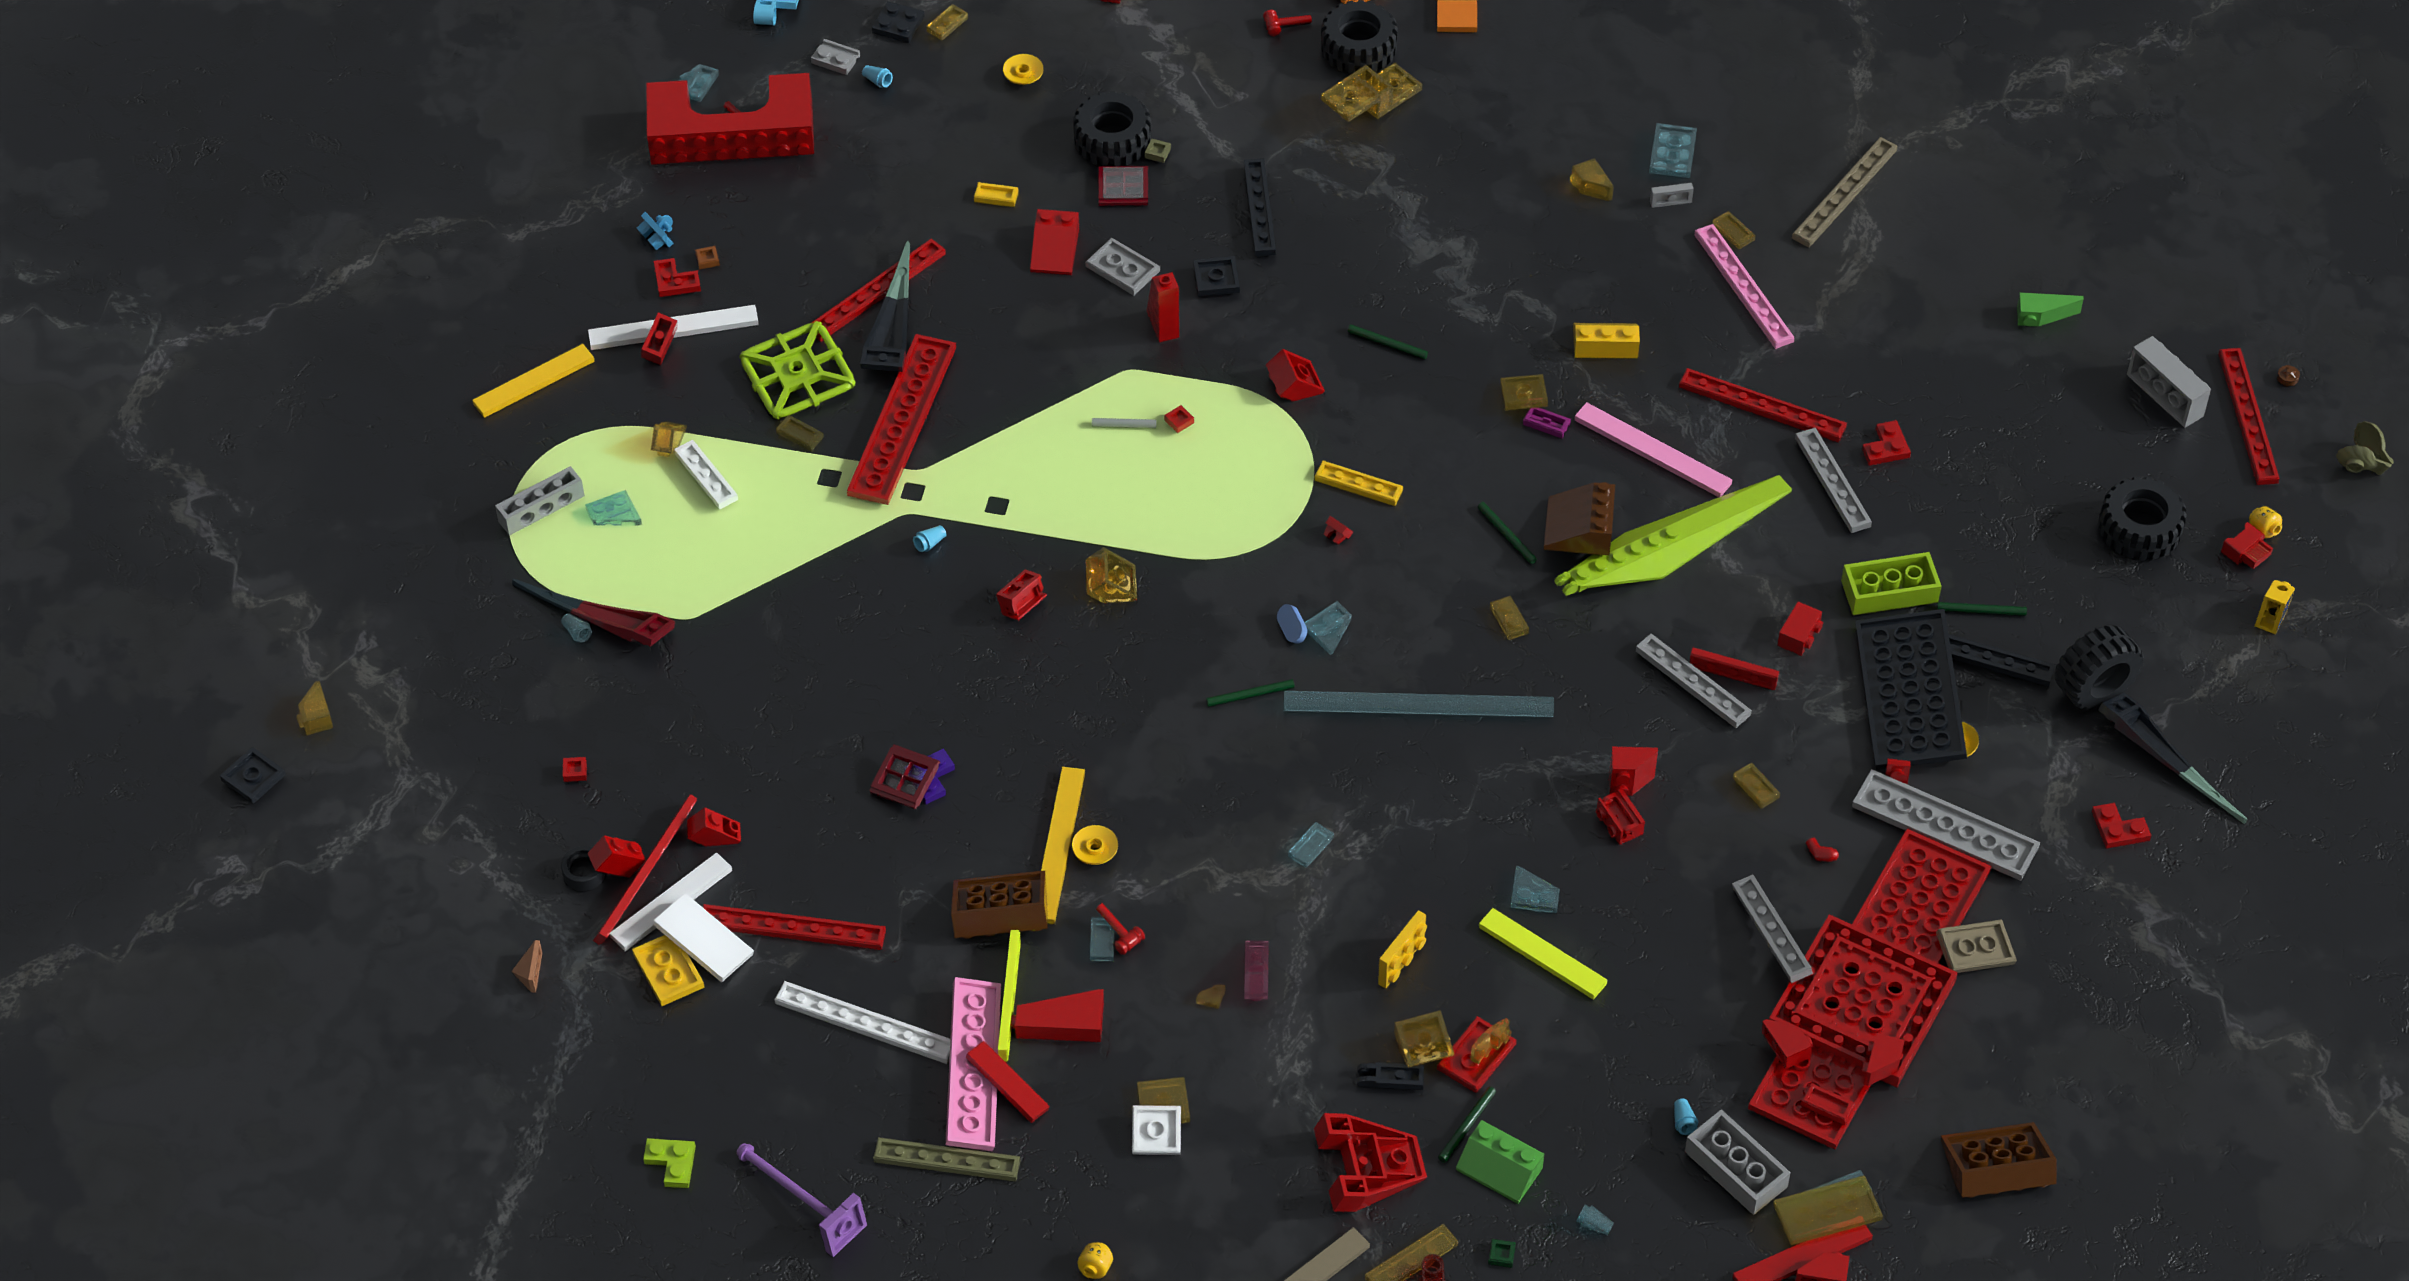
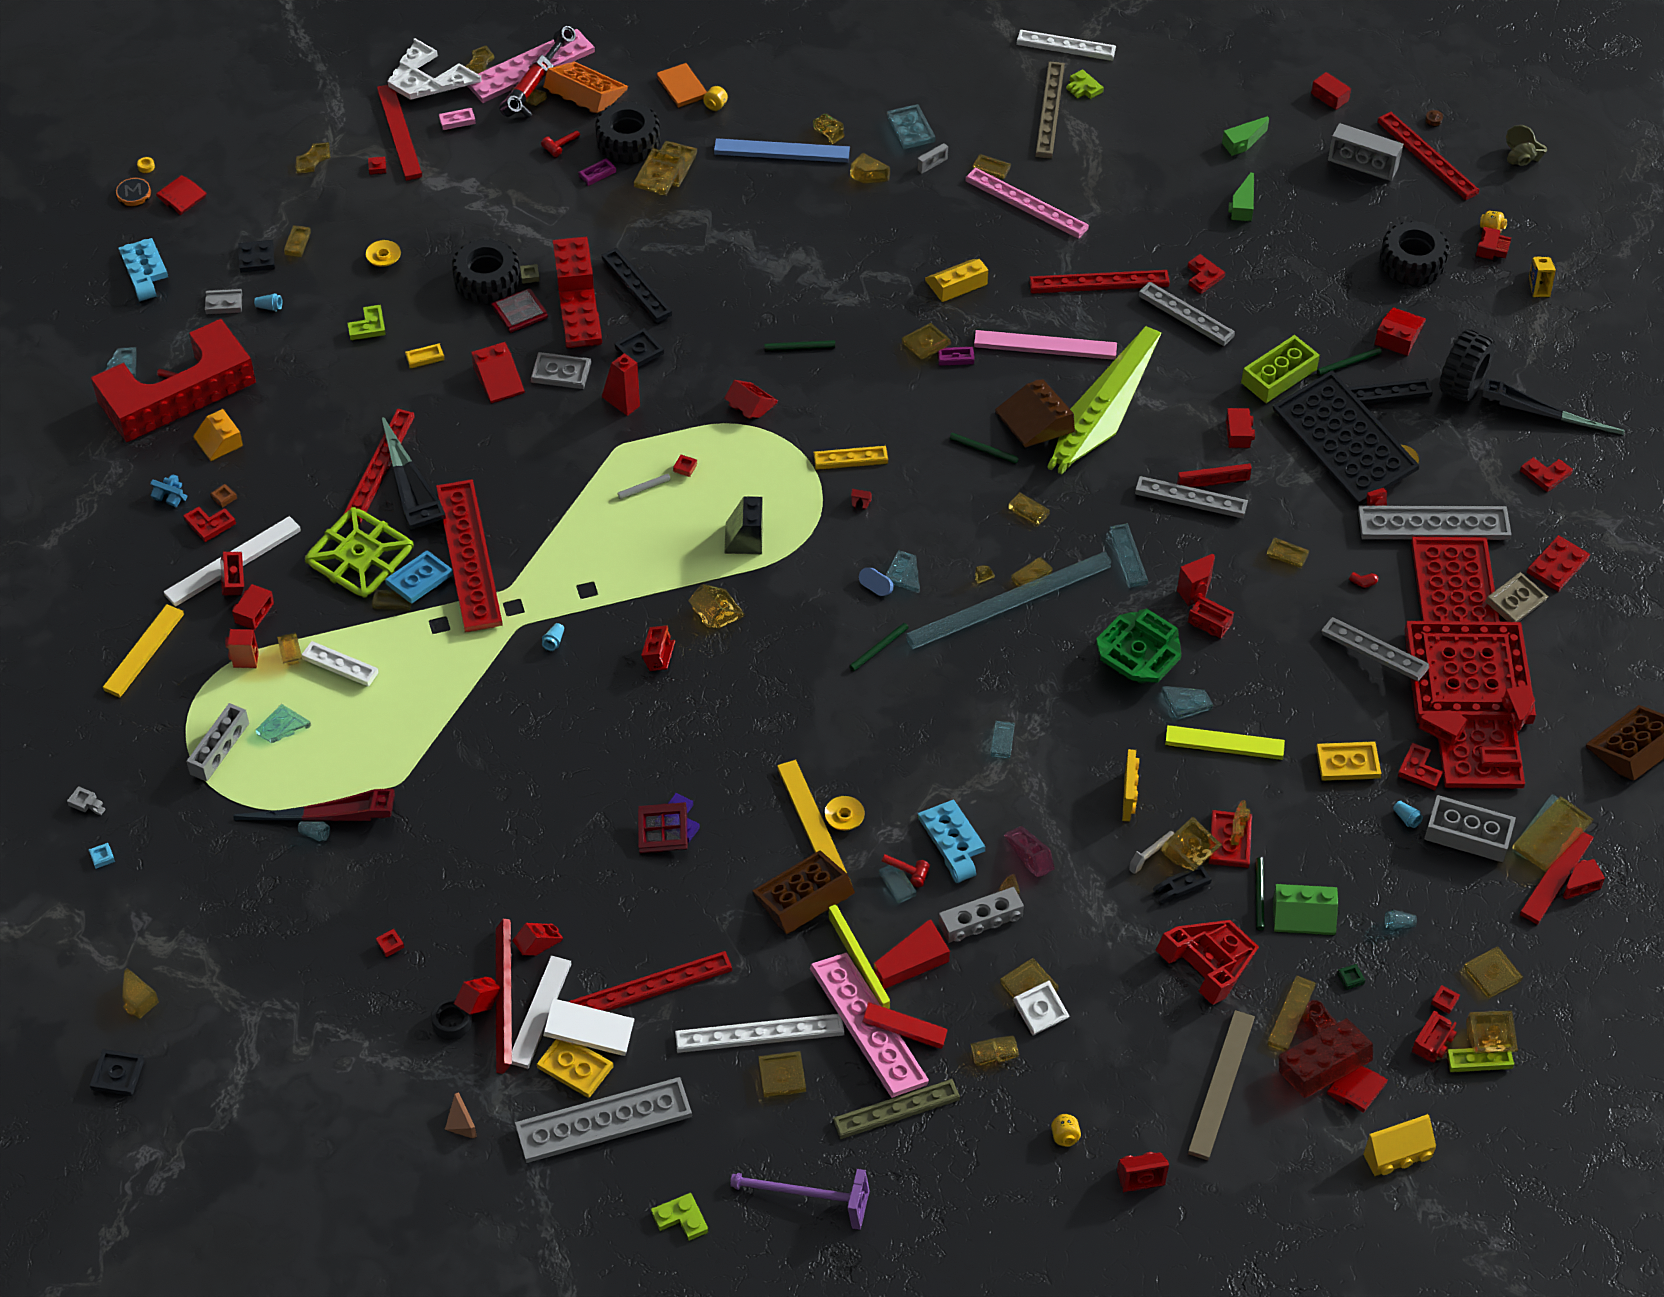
camera: 30 degrees left, 0 degrees up
(369, 563) = (101, 855): none -> medium azure tile
(386, 501) = (84, 799): none -> light grey plate
(621, 418) = (242, 648): none -> red brick
(660, 1032) = (603, 1119): none -> light grey plate
(661, 381) = (253, 606): none -> red brick
(739, 193) = (218, 435): none -> light orange slope
(838, 420) = (419, 576): none -> dark azure plate
(858, 1071) = (782, 1074): none -> clear yellow plate
(960, 142) = (370, 327): none -> lime plate
(1080, 1147) = (994, 1049): none -> clear yellow slope
(1152, 1001) = (987, 906): none -> light grey brick
(1174, 944) = (957, 861): none -> medium azure hinge
(1192, 193) = (577, 292): none -> red bracket
(1195, 510) = (745, 527): none -> black slope
(1304, 71) = (598, 173): none -> magenta tile
(1358, 1030) = (1139, 858): none -> light grey piece
(1411, 664) = (983, 573): none -> clear yellow tile
(1464, 685) = (1031, 572): none -> clear yellow plate
(1480, 36) = (715, 98): none -> yellow head
(1515, 122) = (782, 150): none -> medium blue tile
(1517, 794) = (1140, 646): none -> green piece
(1581, 712) = (1128, 555): none -> clear light blue tile
(1582, 117) = (829, 127): none -> clear yellow leg
(1660, 1032) = (1348, 761): none -> yellow plate
(1728, 1075) = (1416, 770): none -> red plate
(1902, 179) = (1084, 84): none -> lime hinge
(1916, 126) = (1066, 45): none -> white tile
(1990, 379) = (1243, 201): none -> bright green slope
(2057, 930) = (1558, 563): none -> red plate
(2064, 598) = (1399, 331): none -> red slope
(2184, 296) = (1331, 90): none -> red brick

